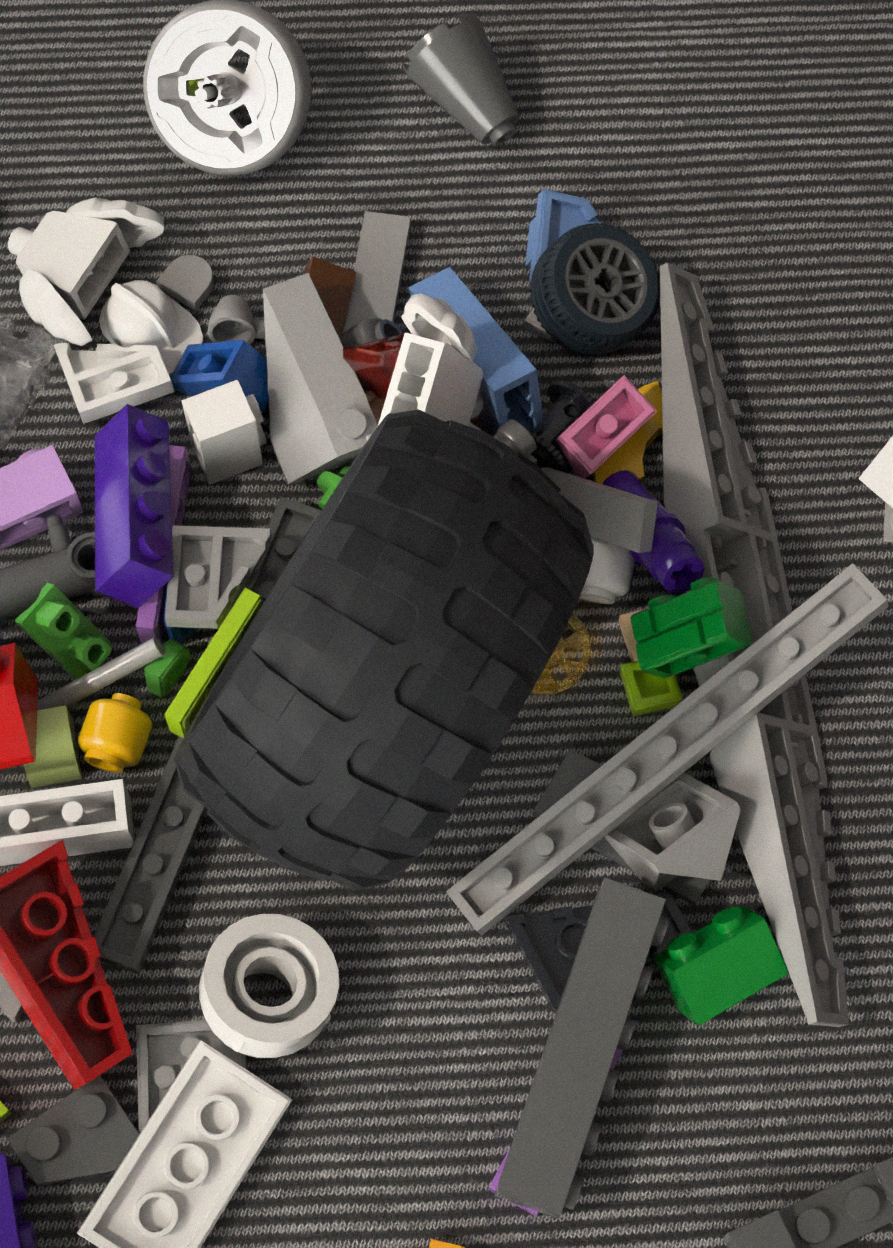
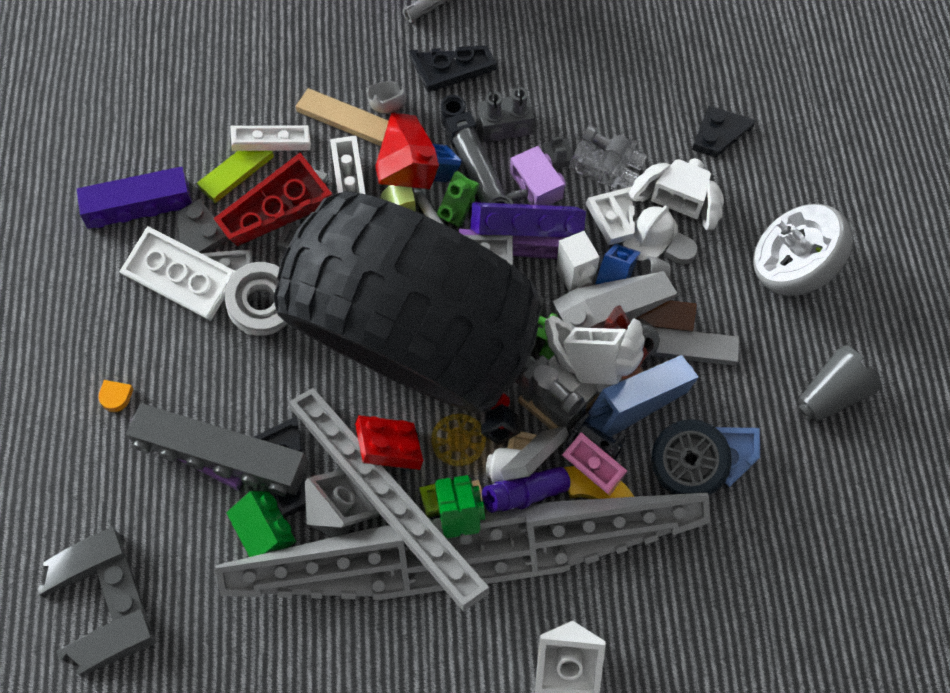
camera: 90 degrees right, 5 degrees down
(566, 749) = (389, 442): none -> red plate

